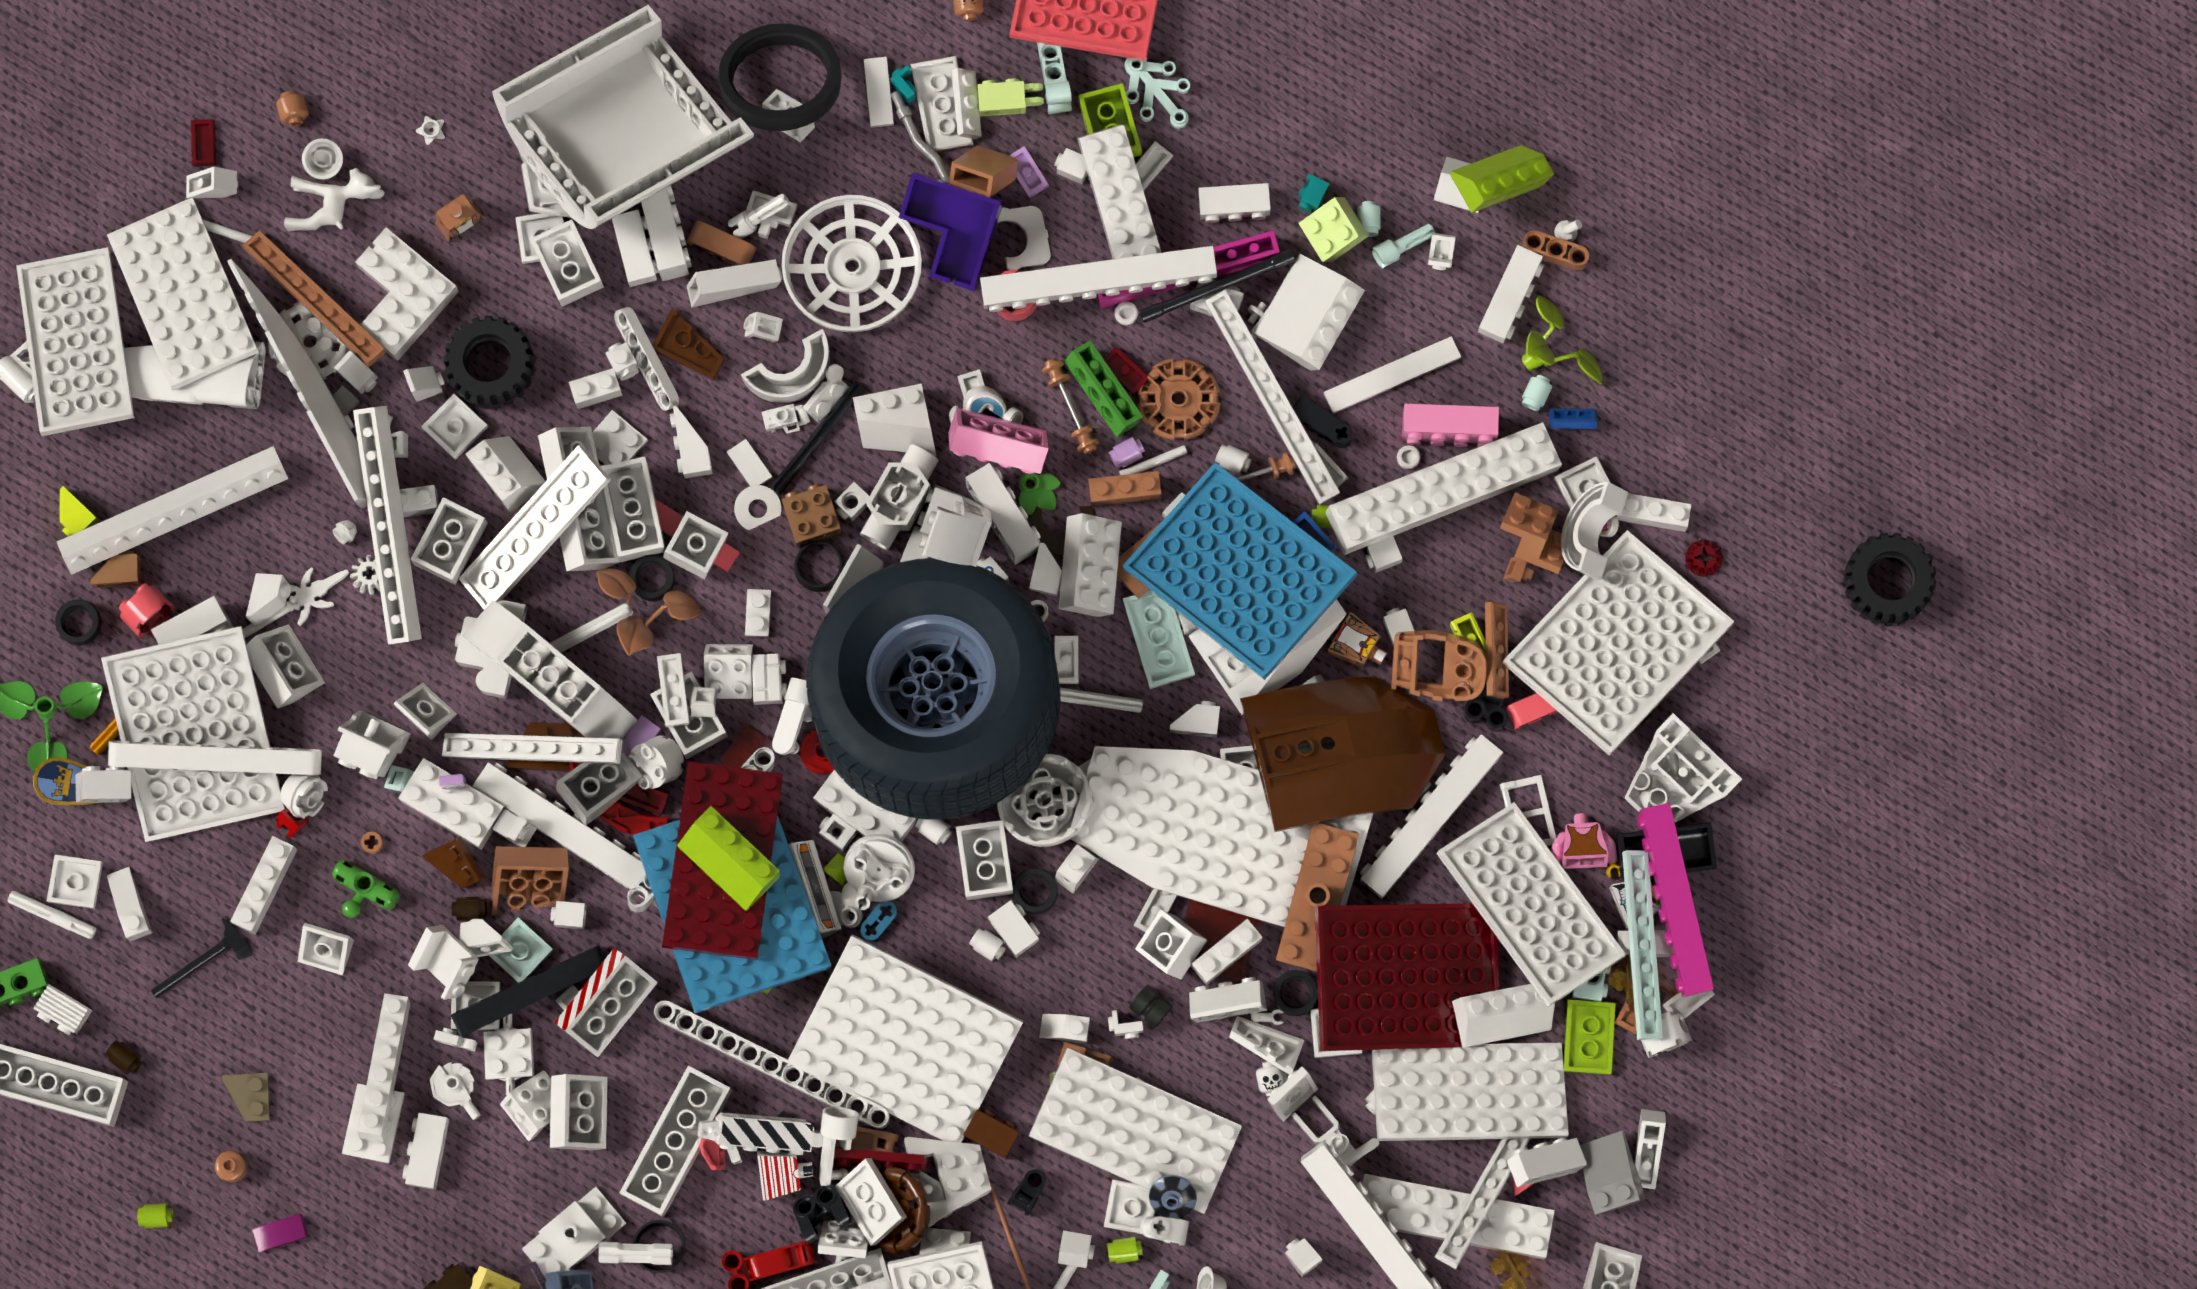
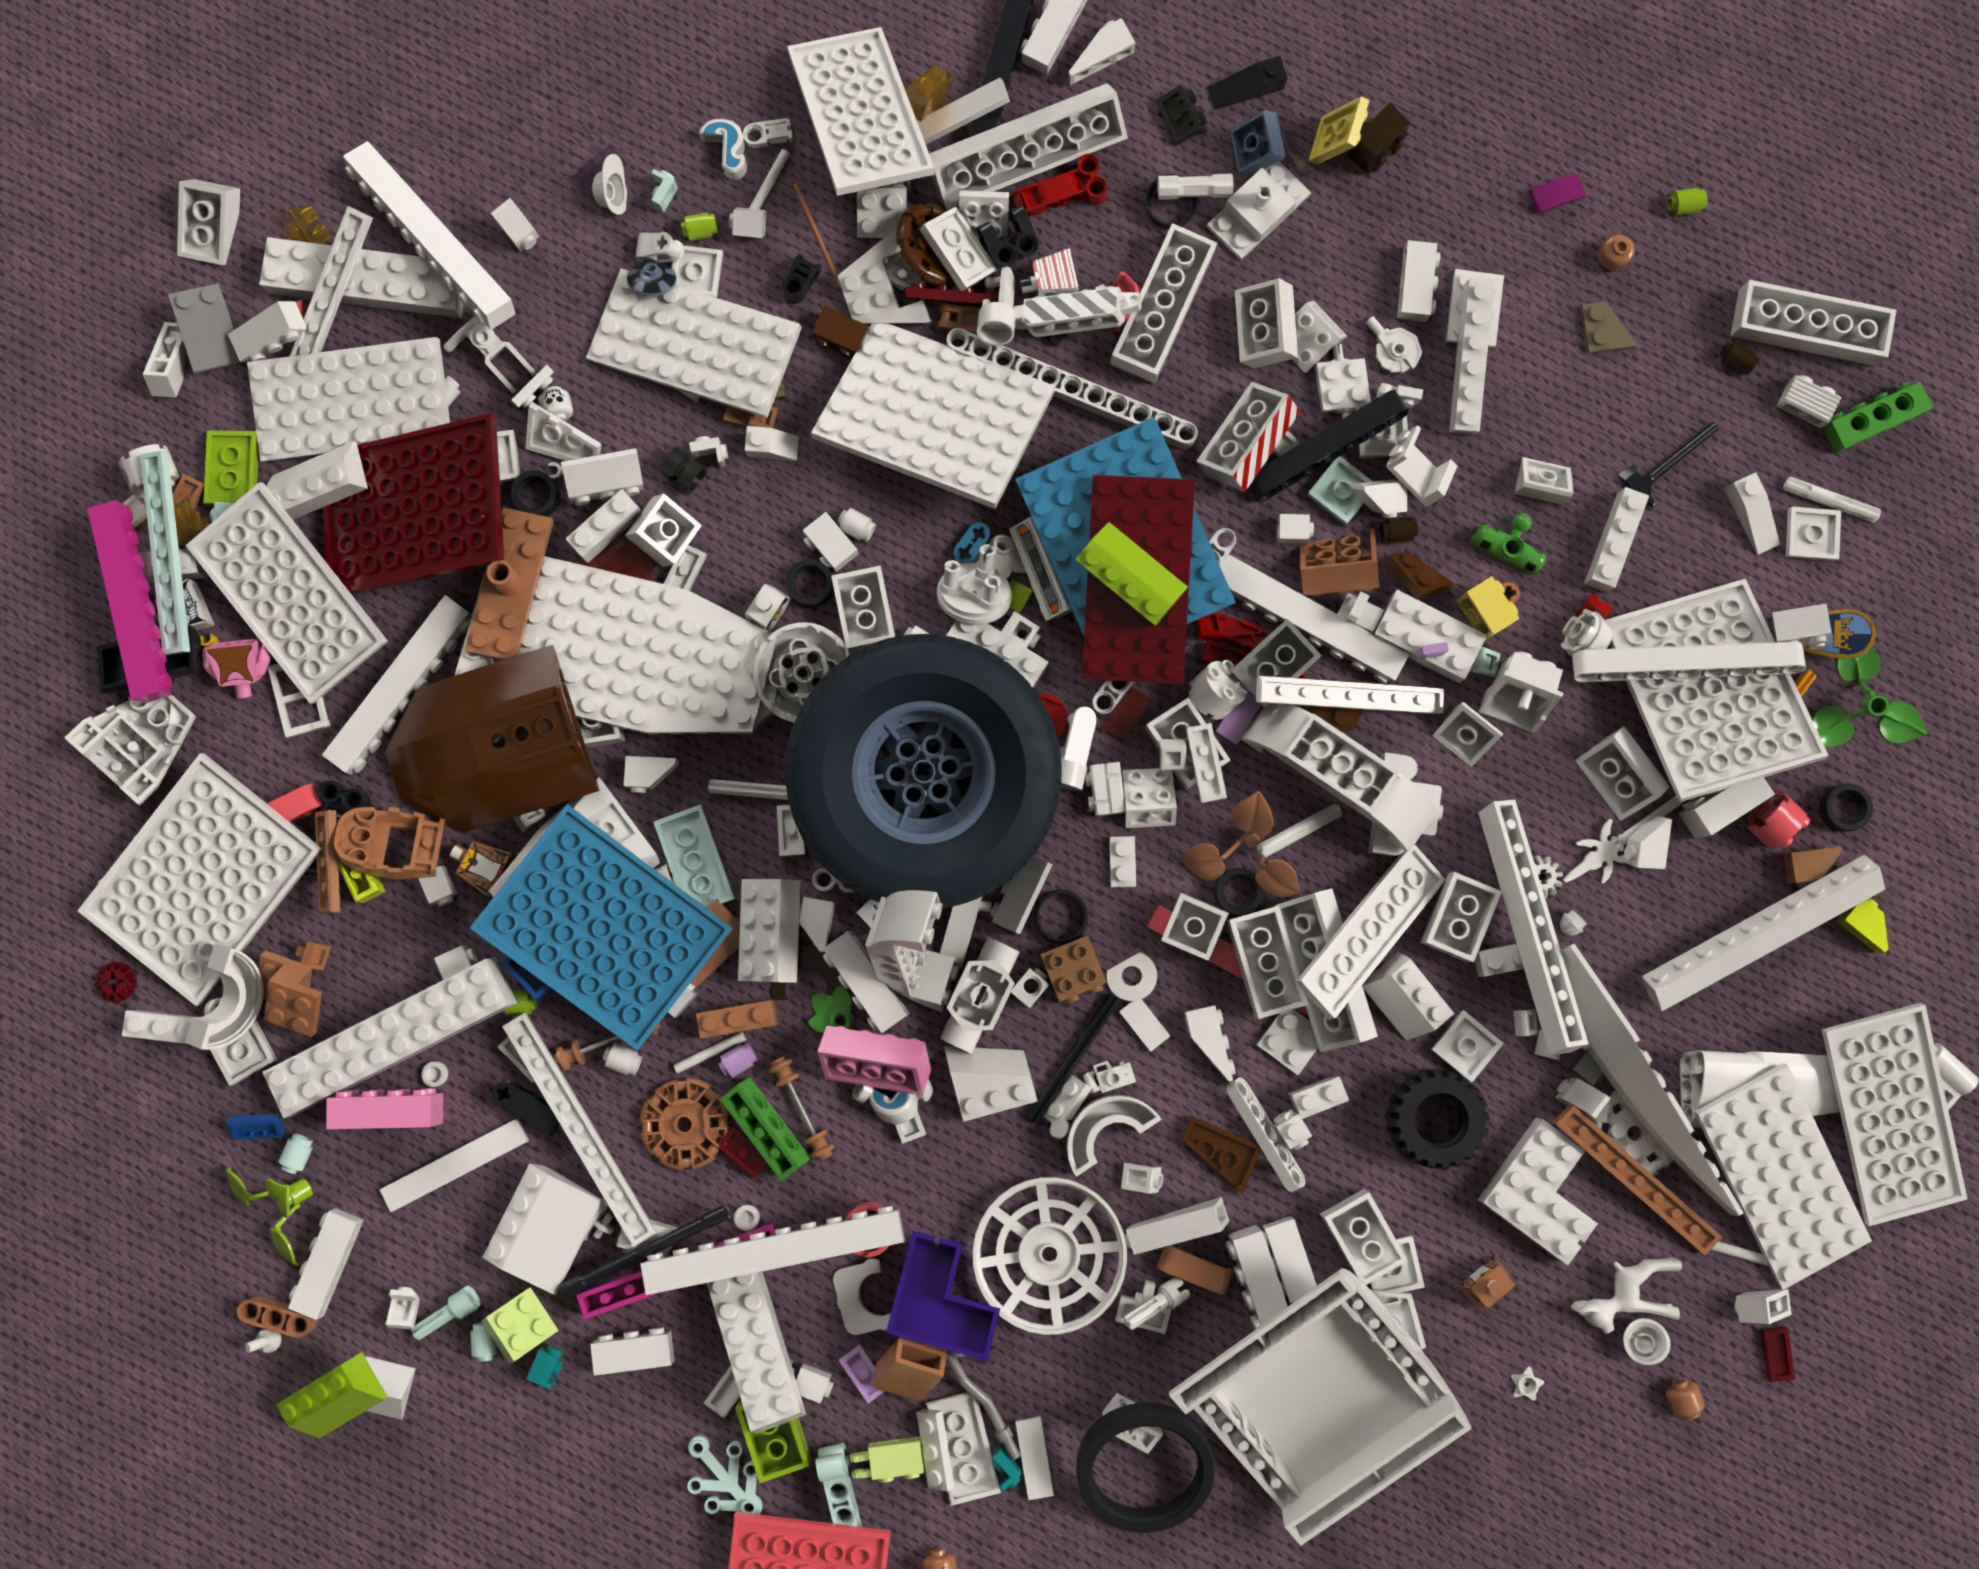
camera: 175 degrees right, 5 degrees up
(394, 823) = (1488, 607): none -> light yellow brick
(424, 382) = (1507, 1092): white slope -> none

